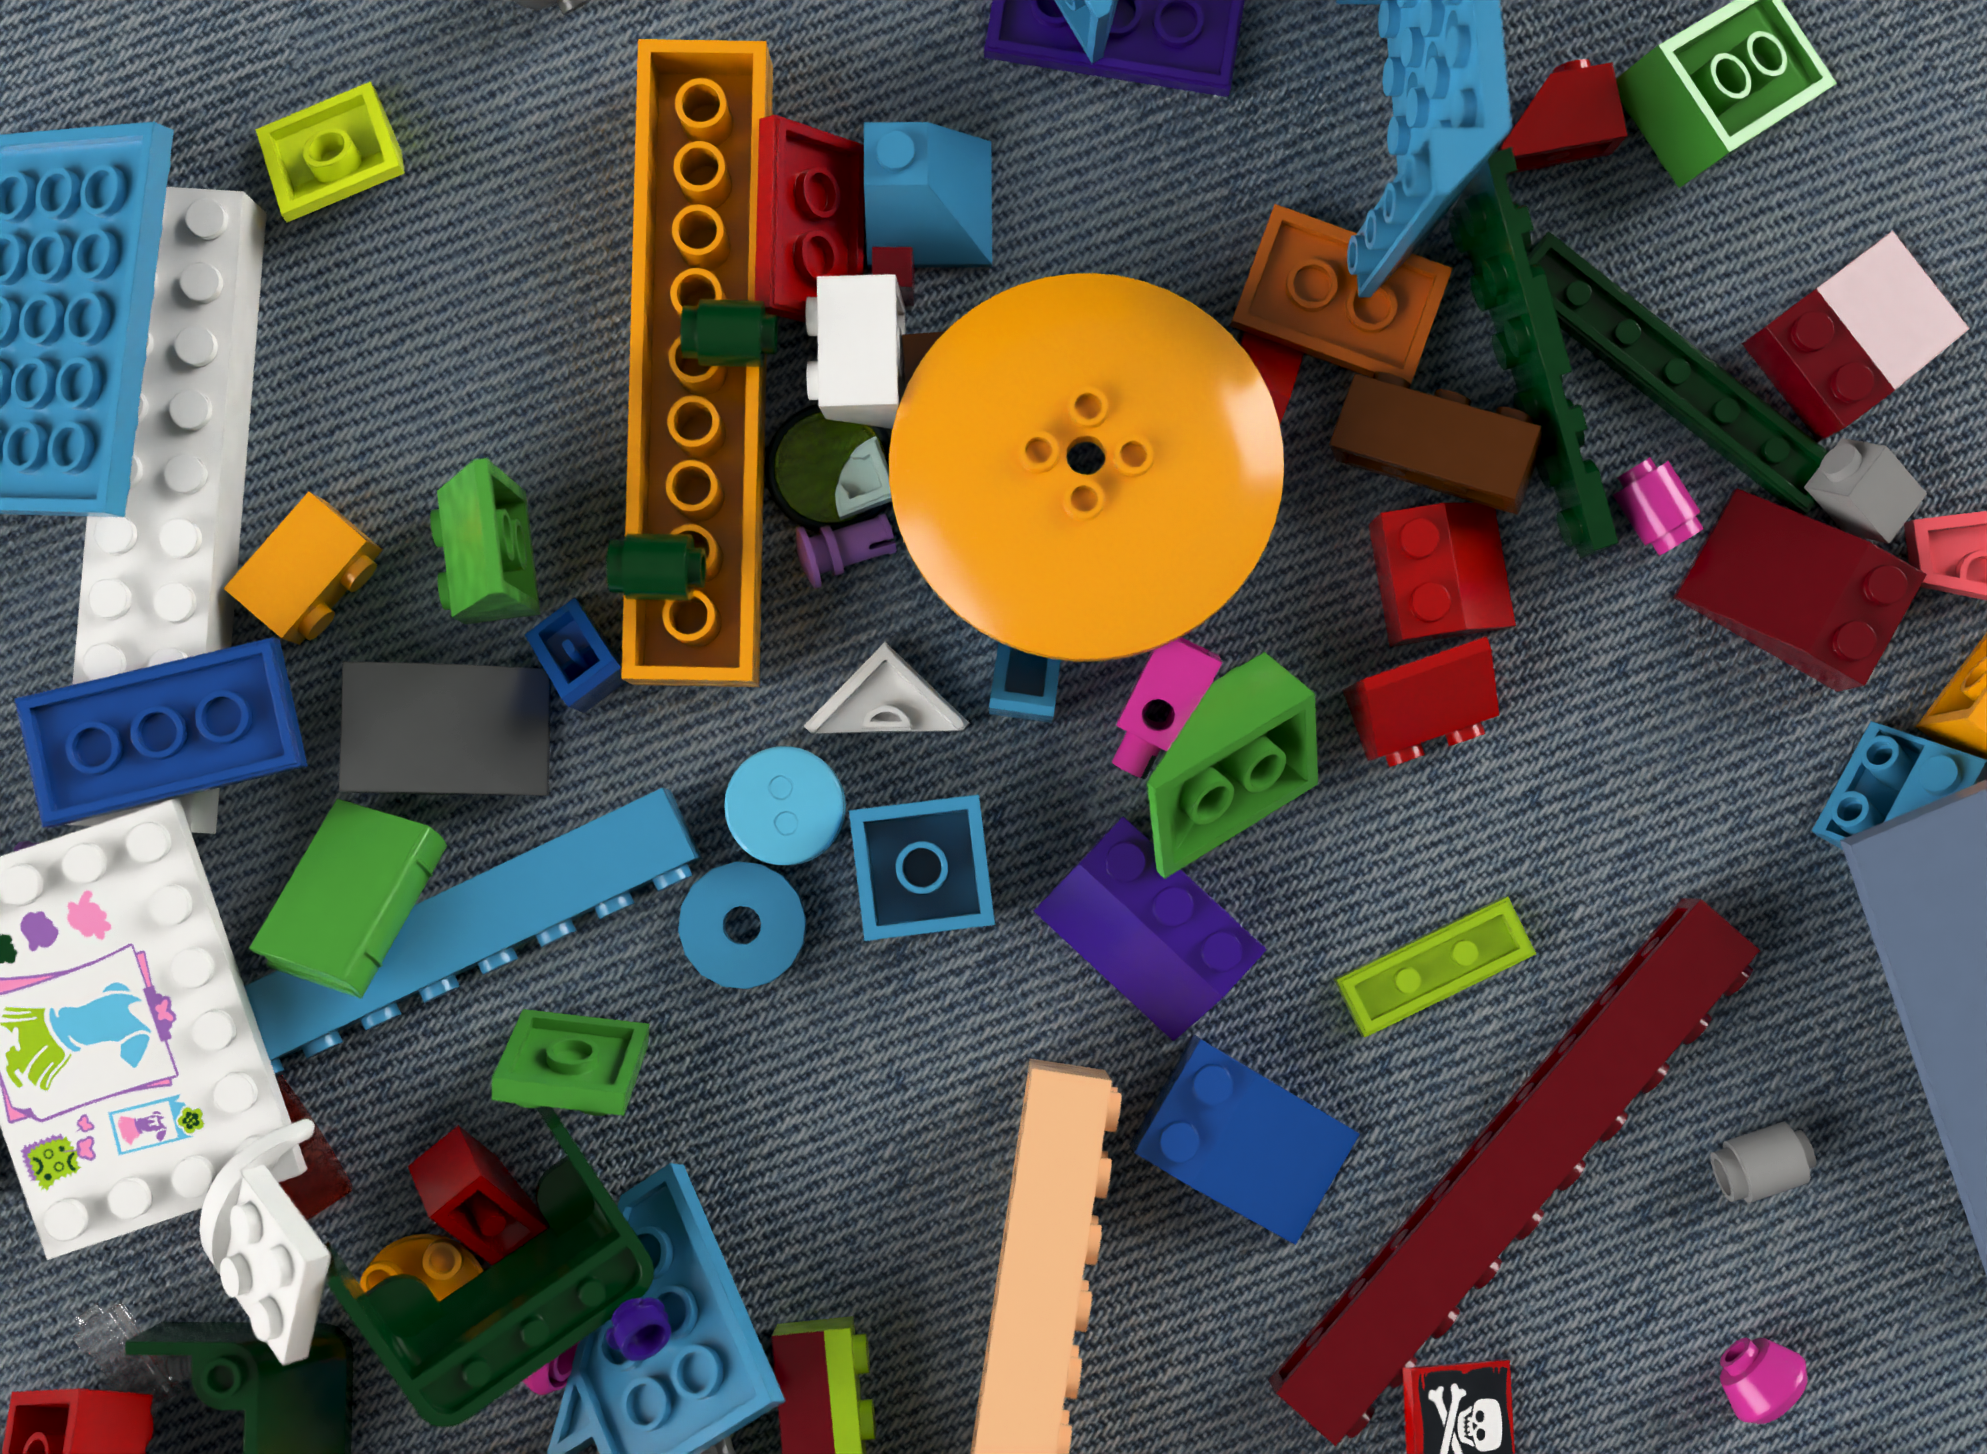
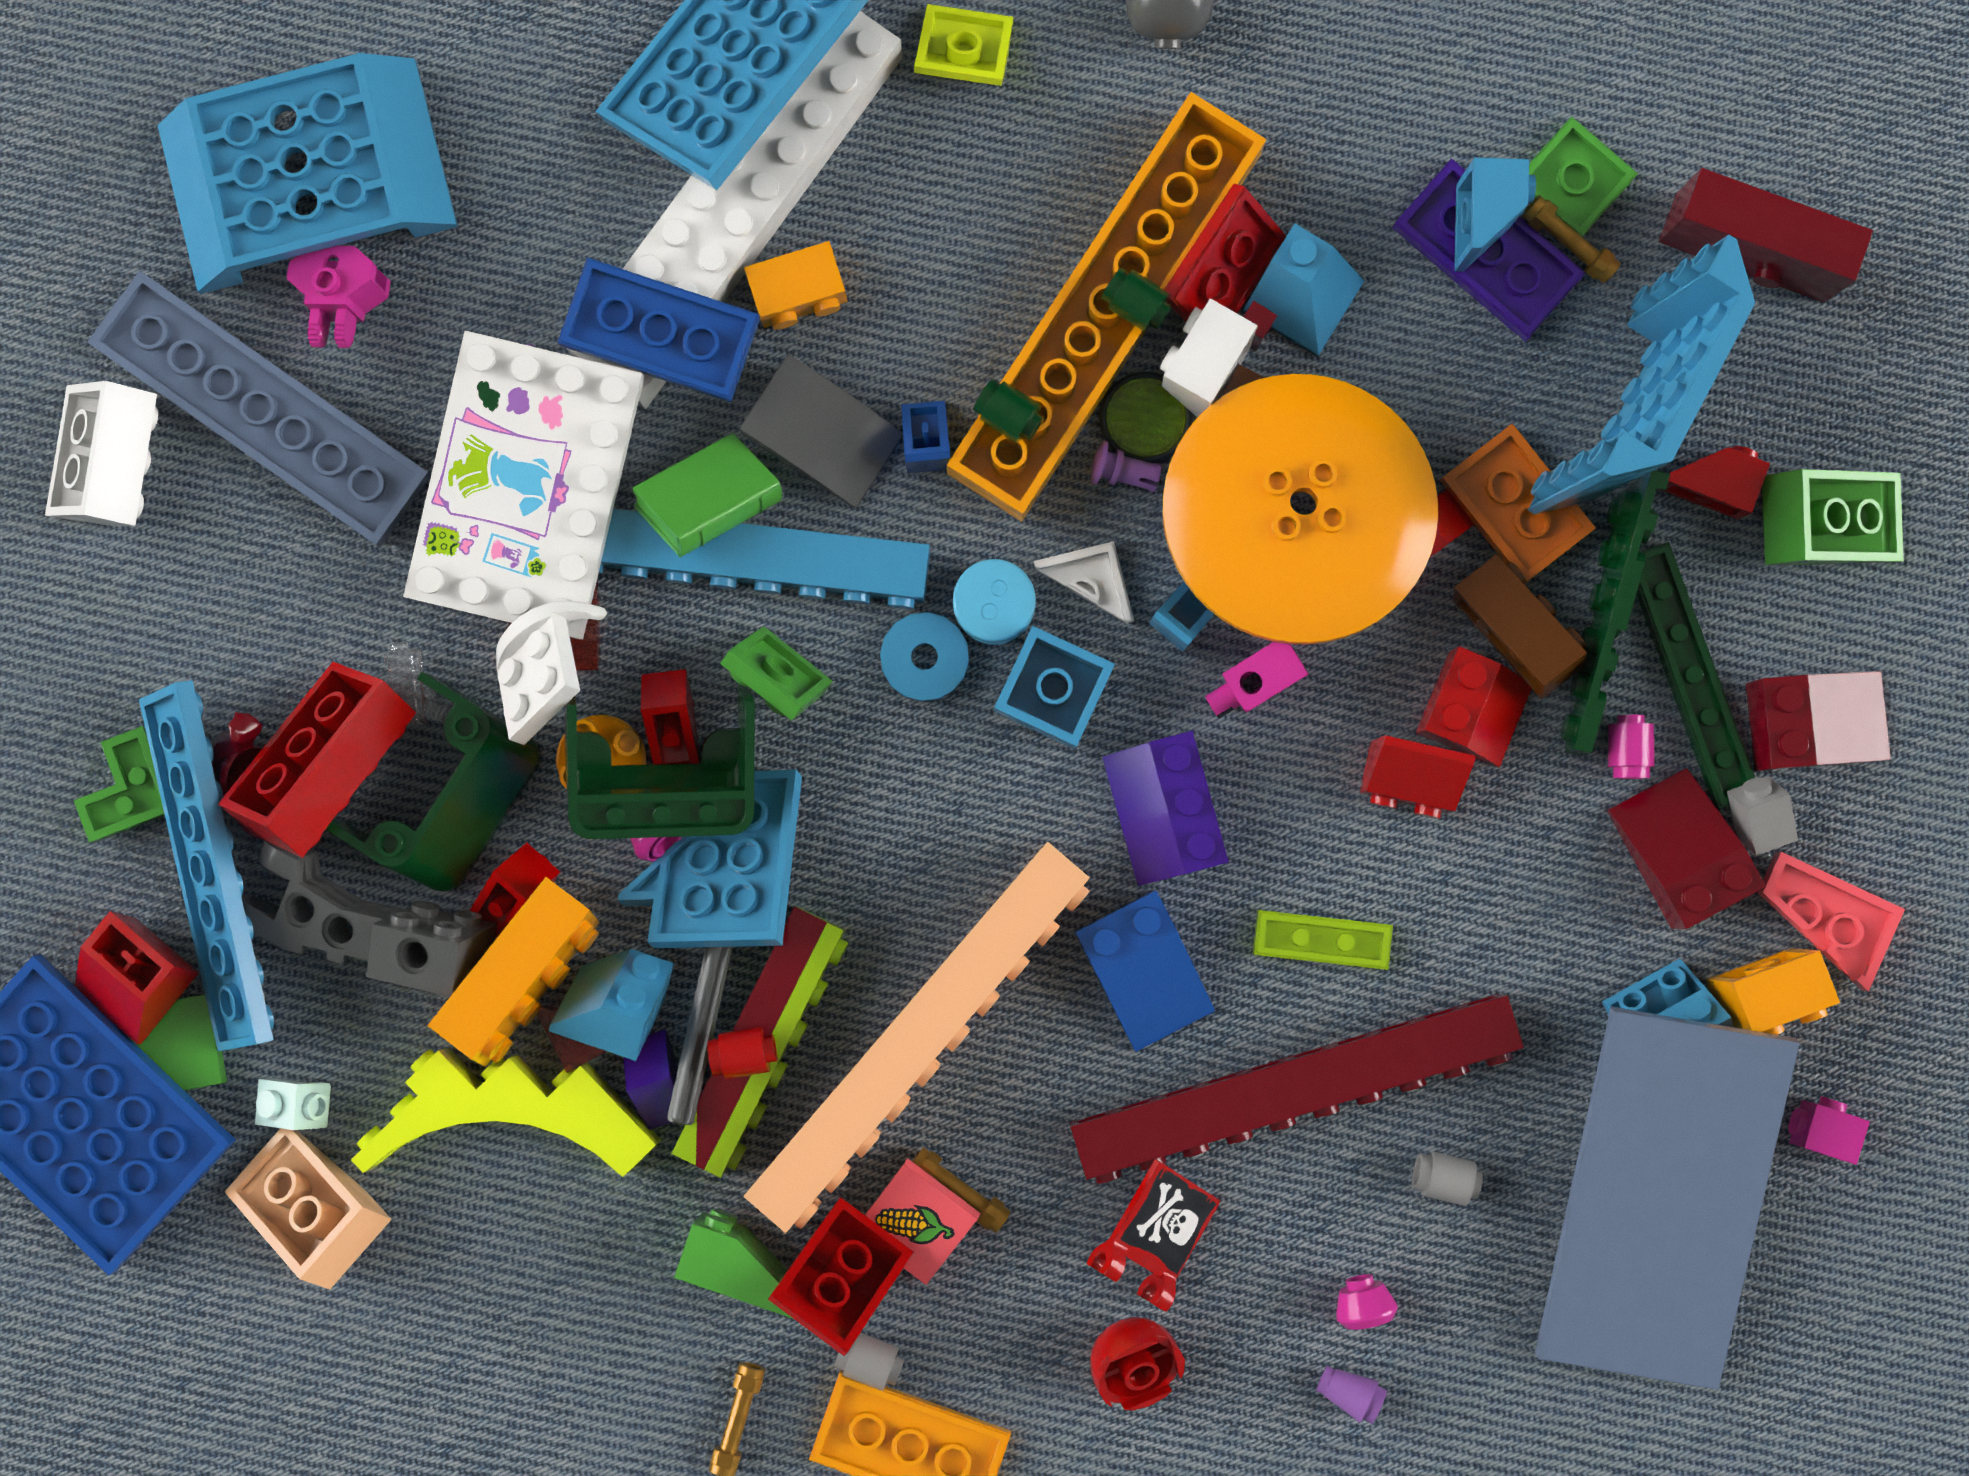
camera: 35 degrees right, 0 degrees up
(485, 546) = (912, 337): bright green slope -> none
(639, 1328) = (722, 851): dark purple plate -> none
(863, 480) = (1160, 437): light aqua tile -> none
(1233, 762) = (1277, 738): bright green slope -> none

